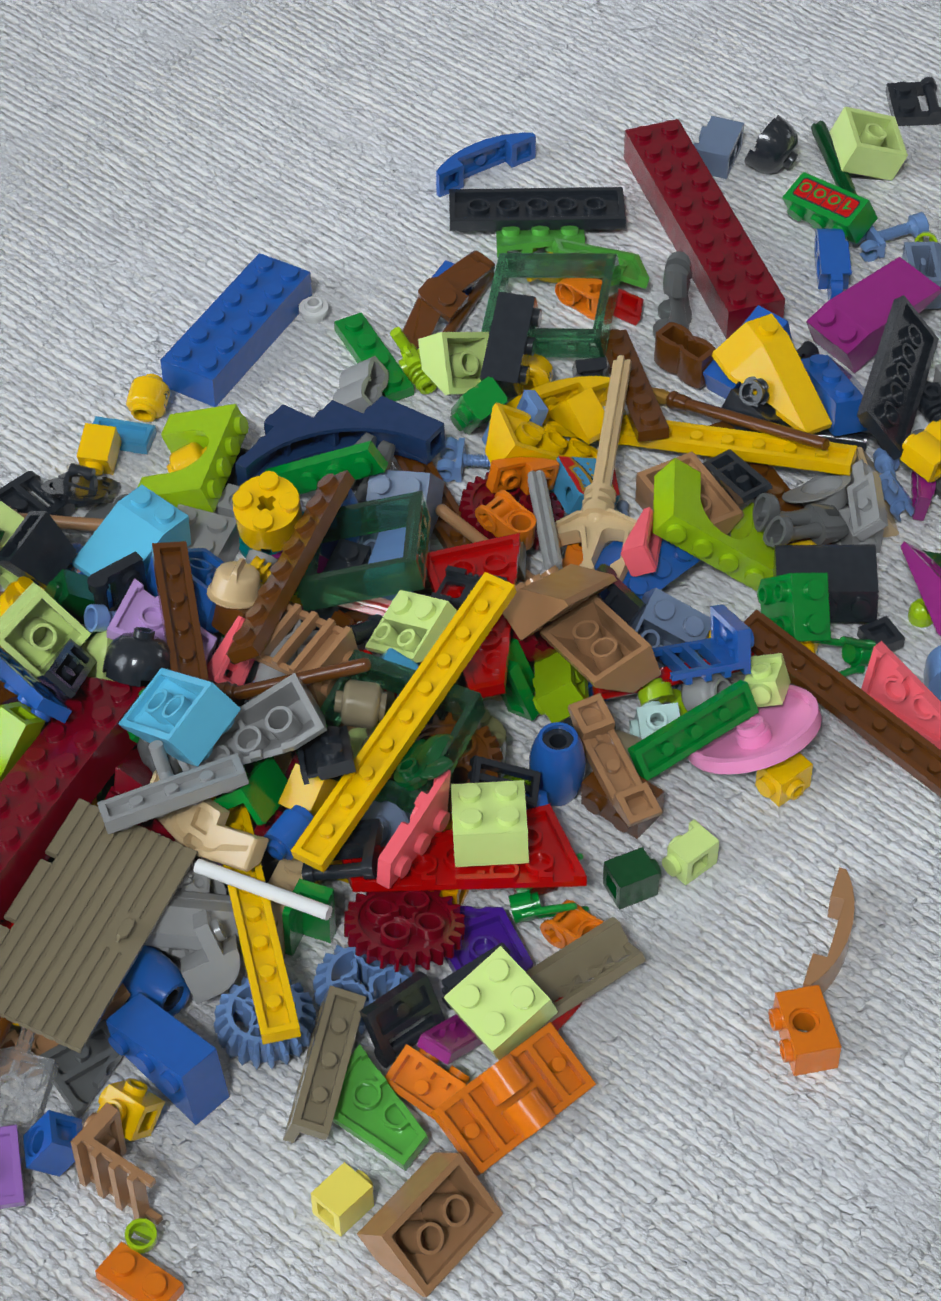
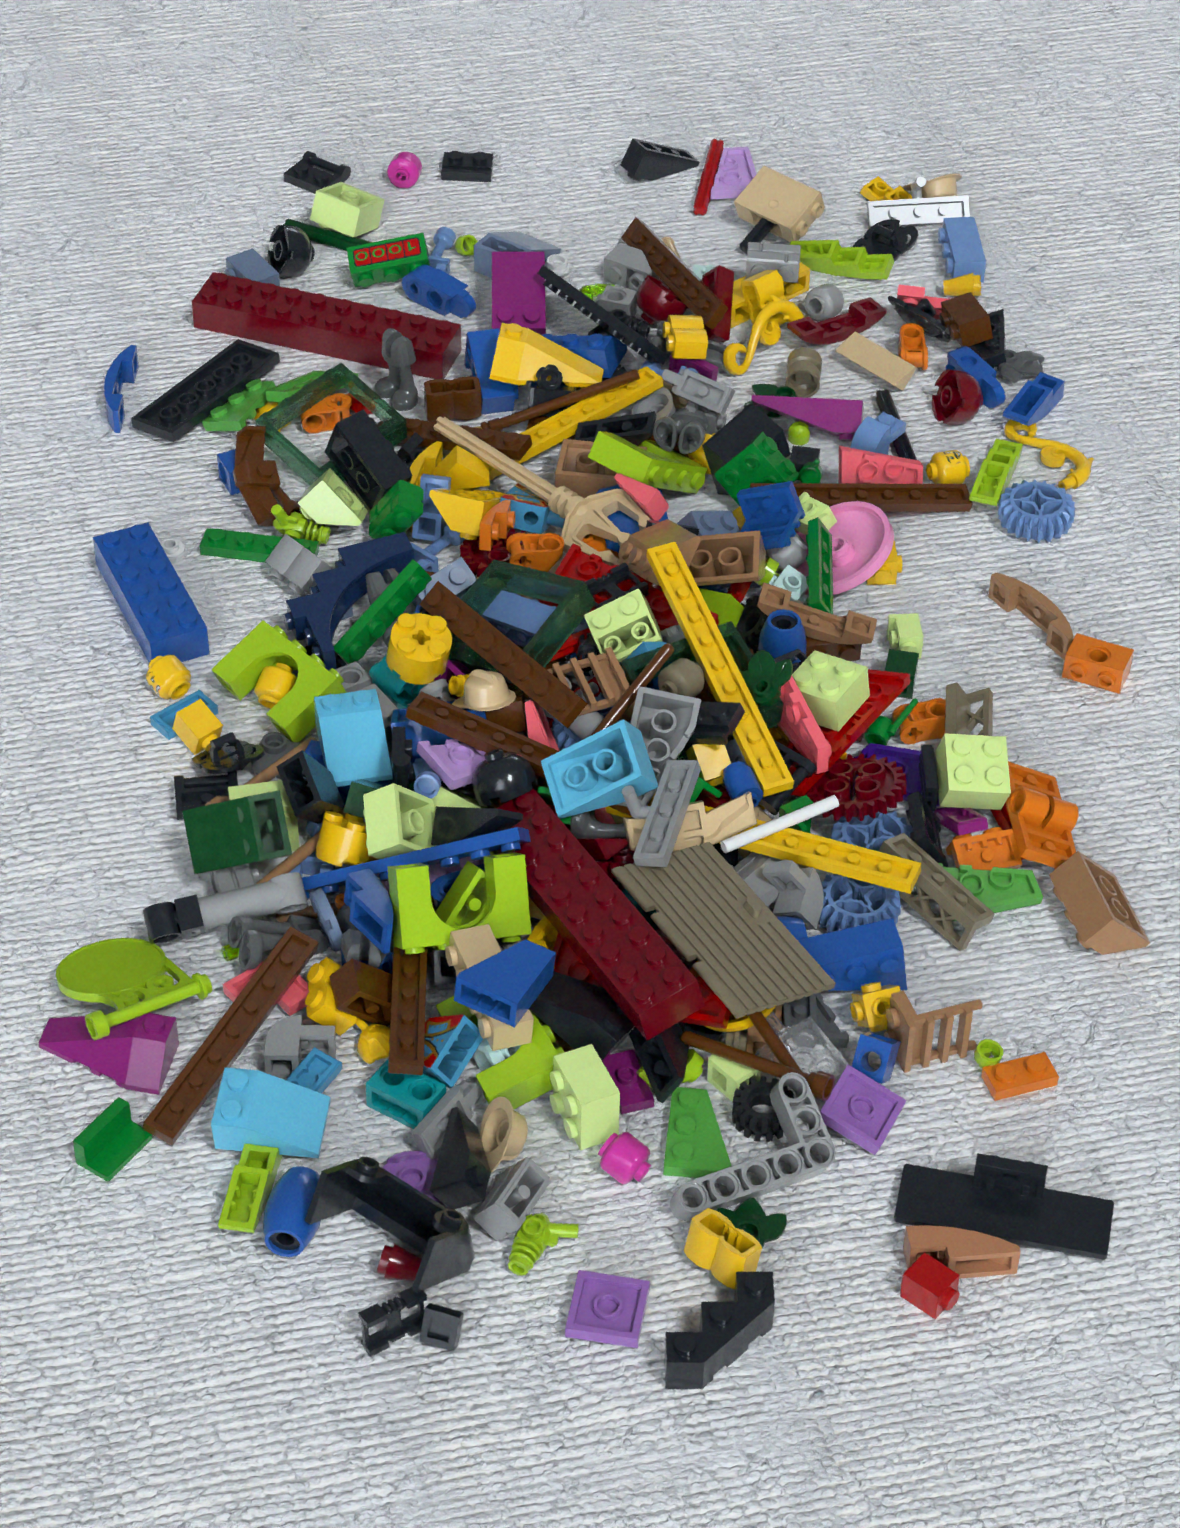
camera: 55 degrees left, 5 degrees down
(343, 1198) = (1045, 939): light yellow brick -> none
(544, 520) = (541, 526): light grey axle -> none

